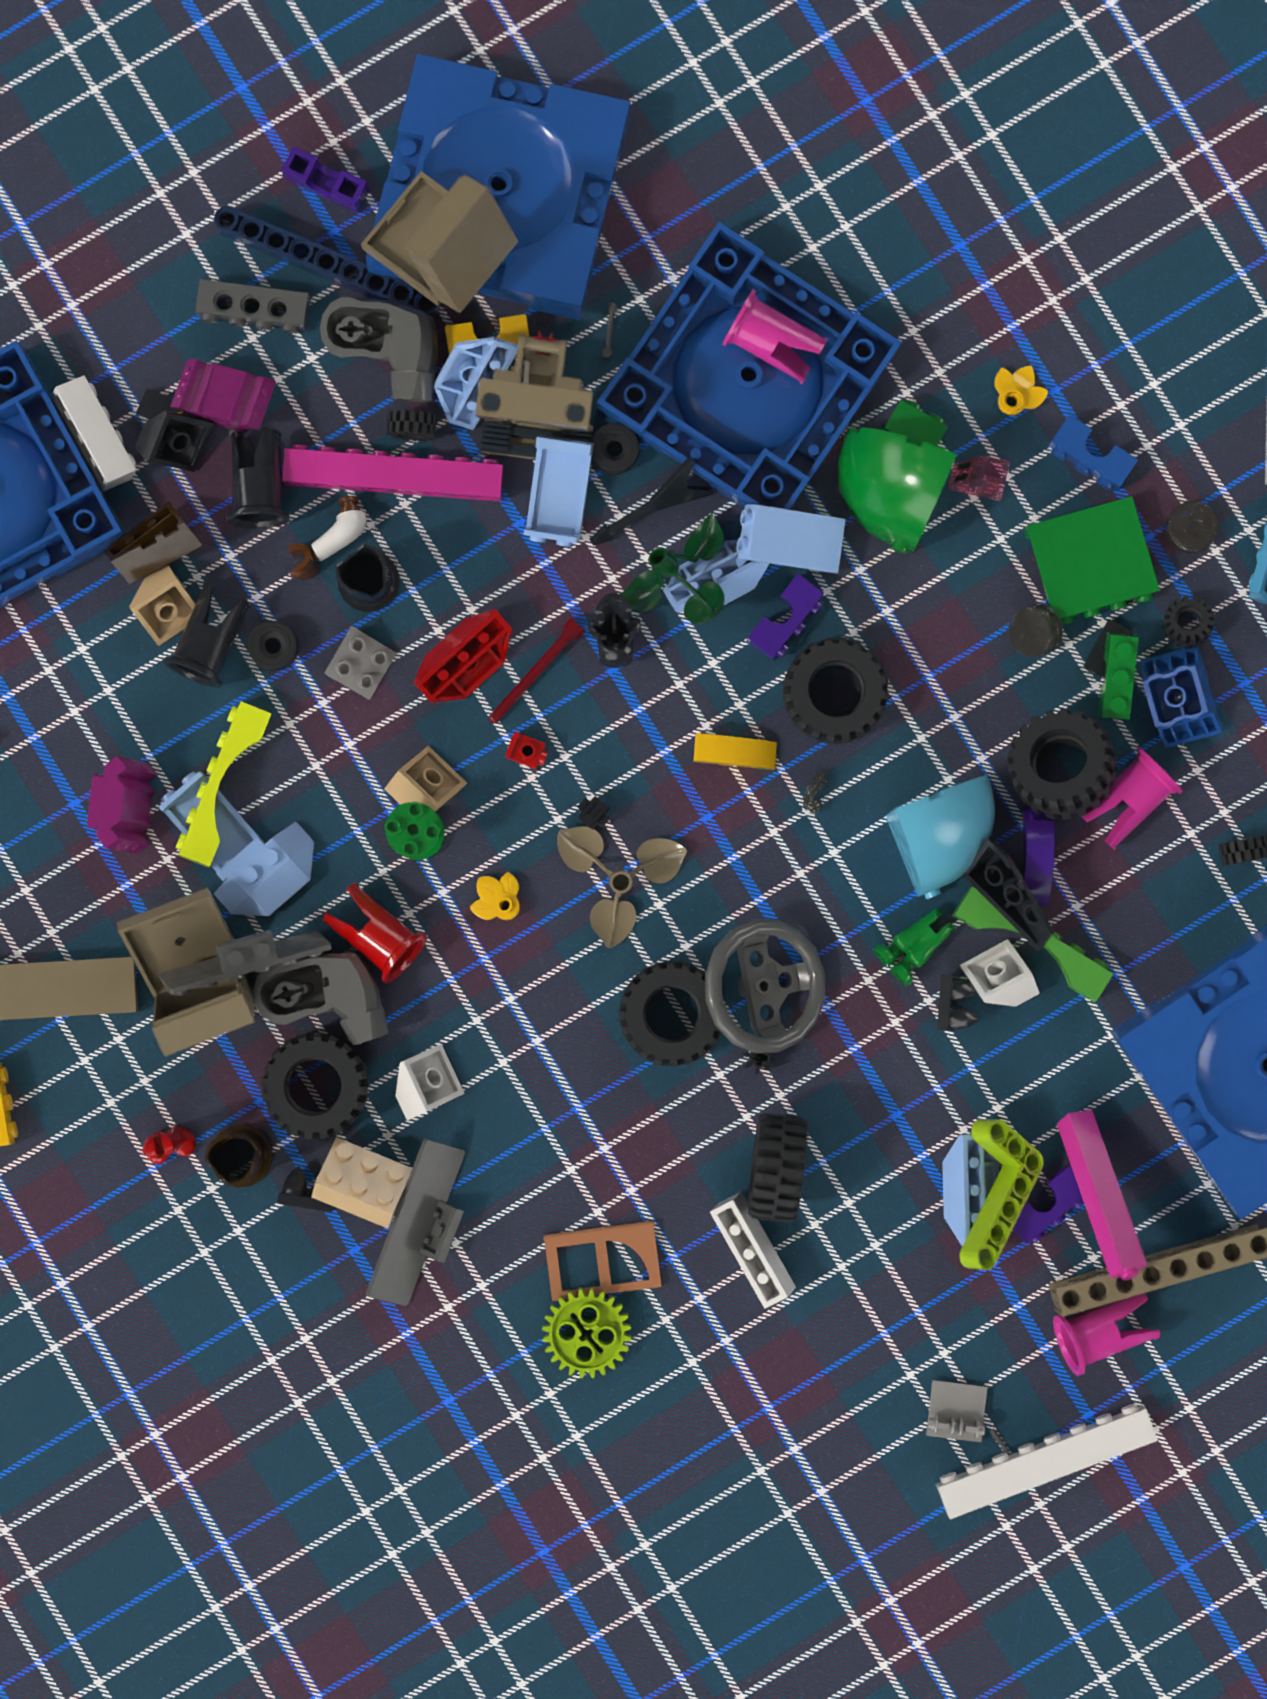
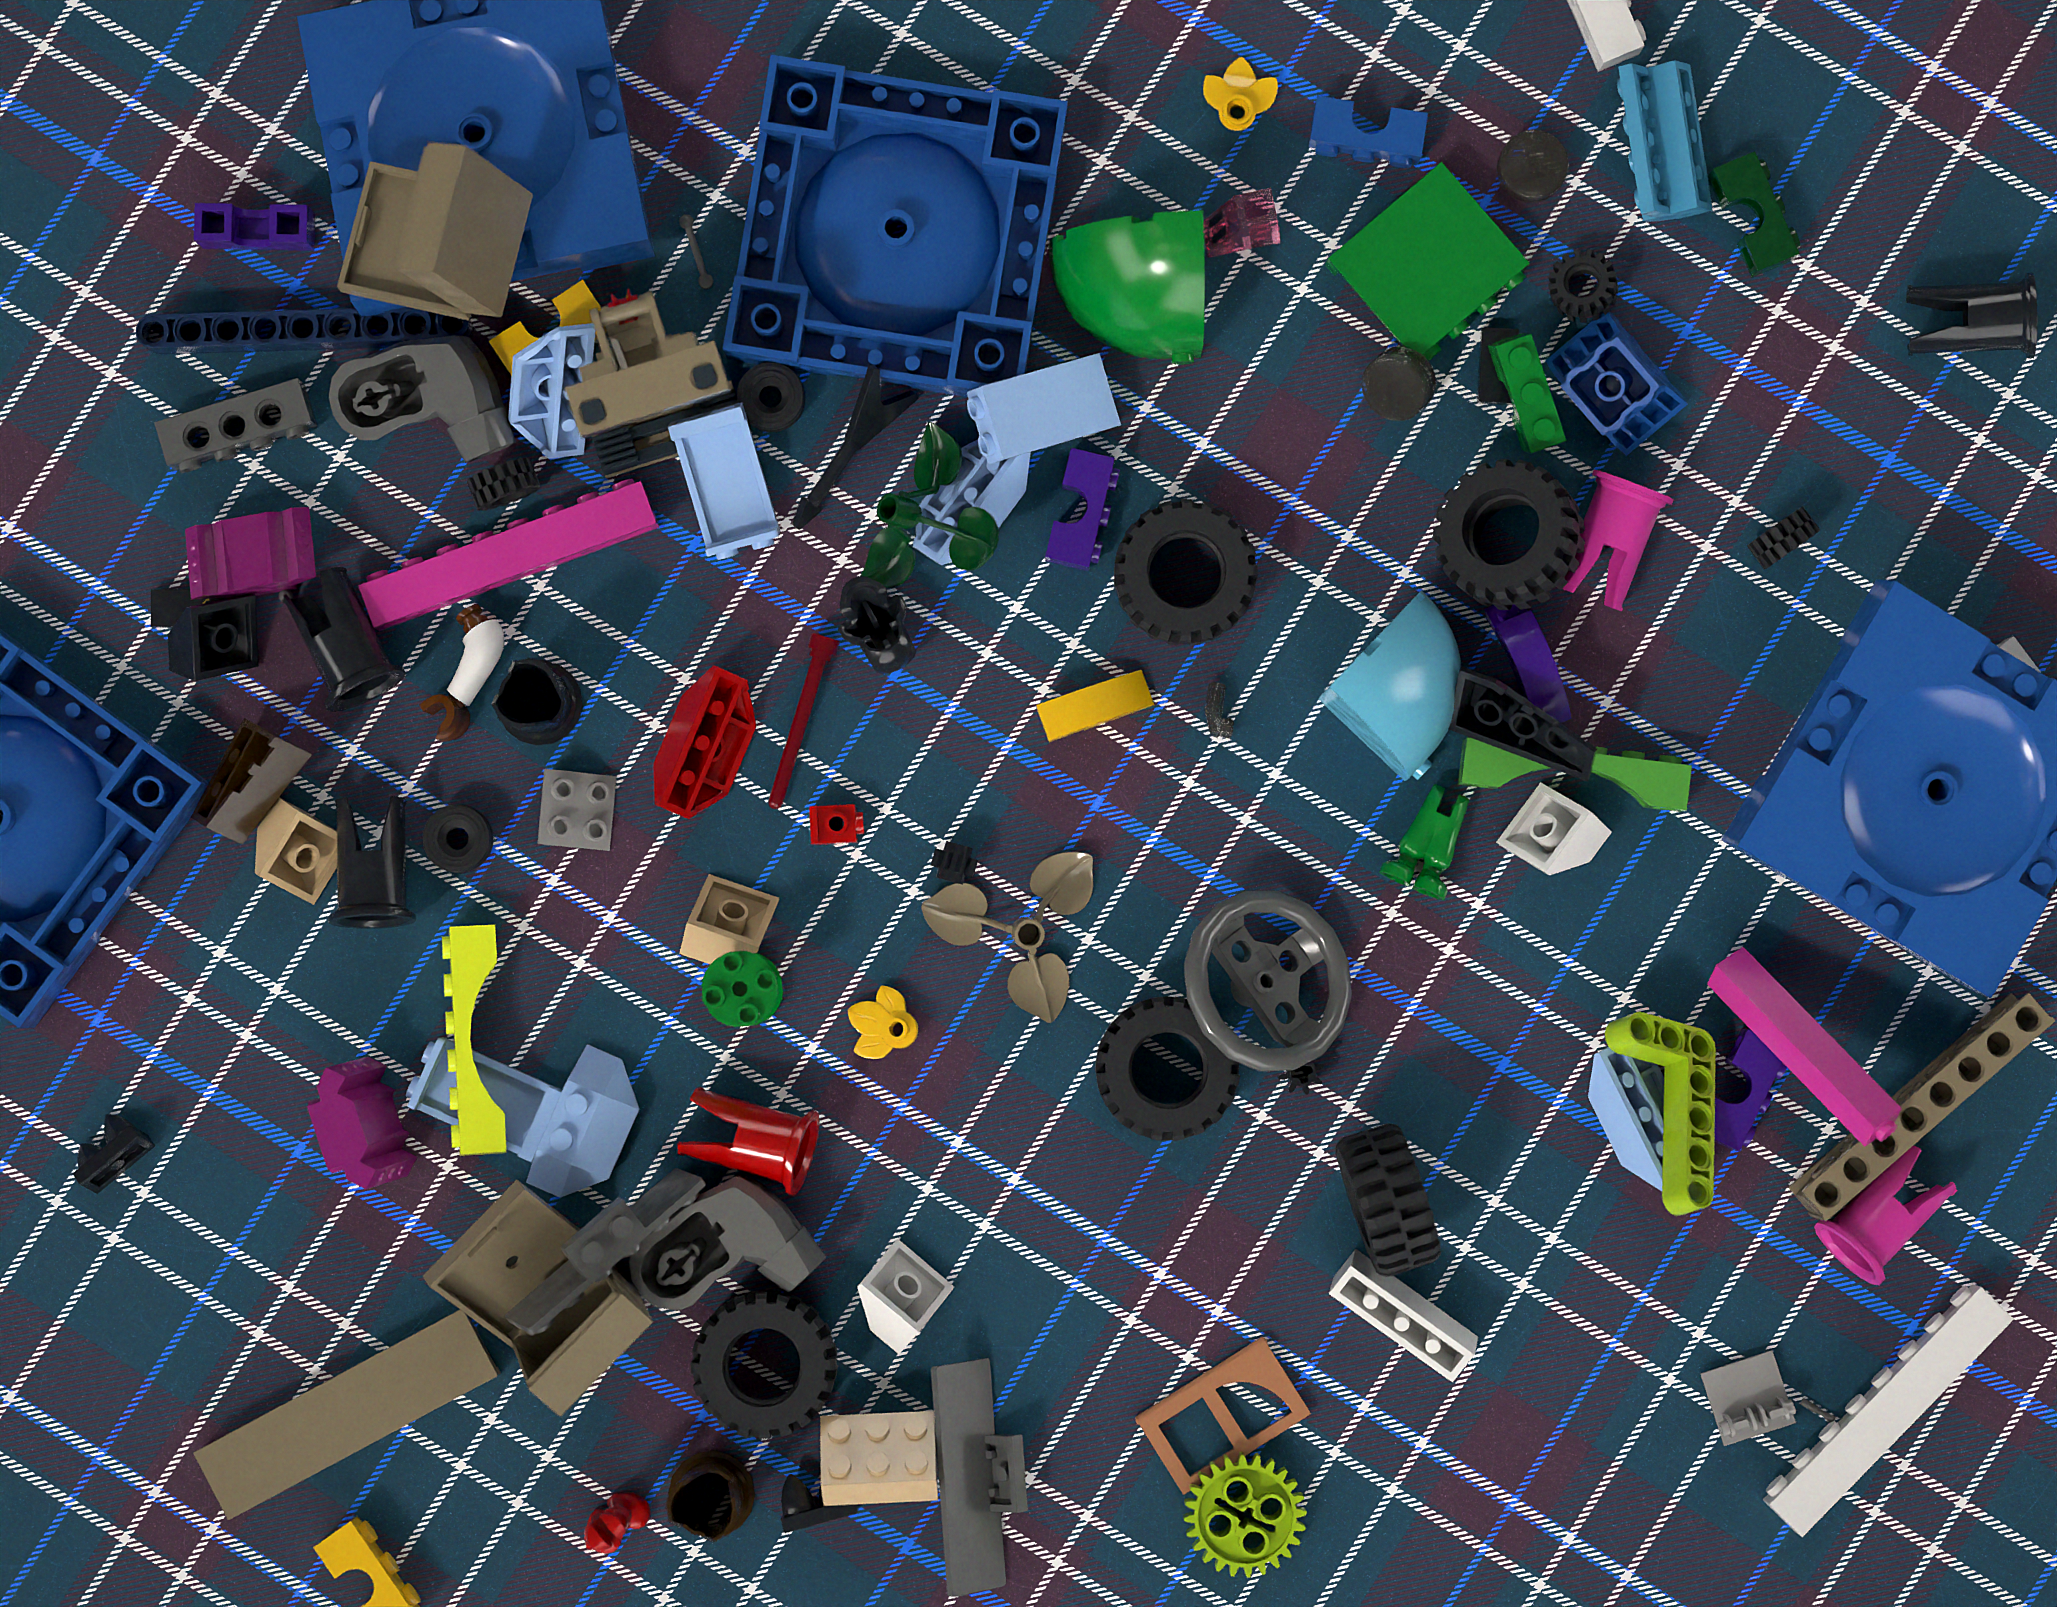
camera: 25 degrees left, 0 degrees up
(93, 433) = (110, 675): white brick -> none
(771, 334) = (902, 167): dark pink piece -> none
(915, 424) = (1132, 195): green brick -> none
(950, 1015) = (1513, 909): black tile -> none

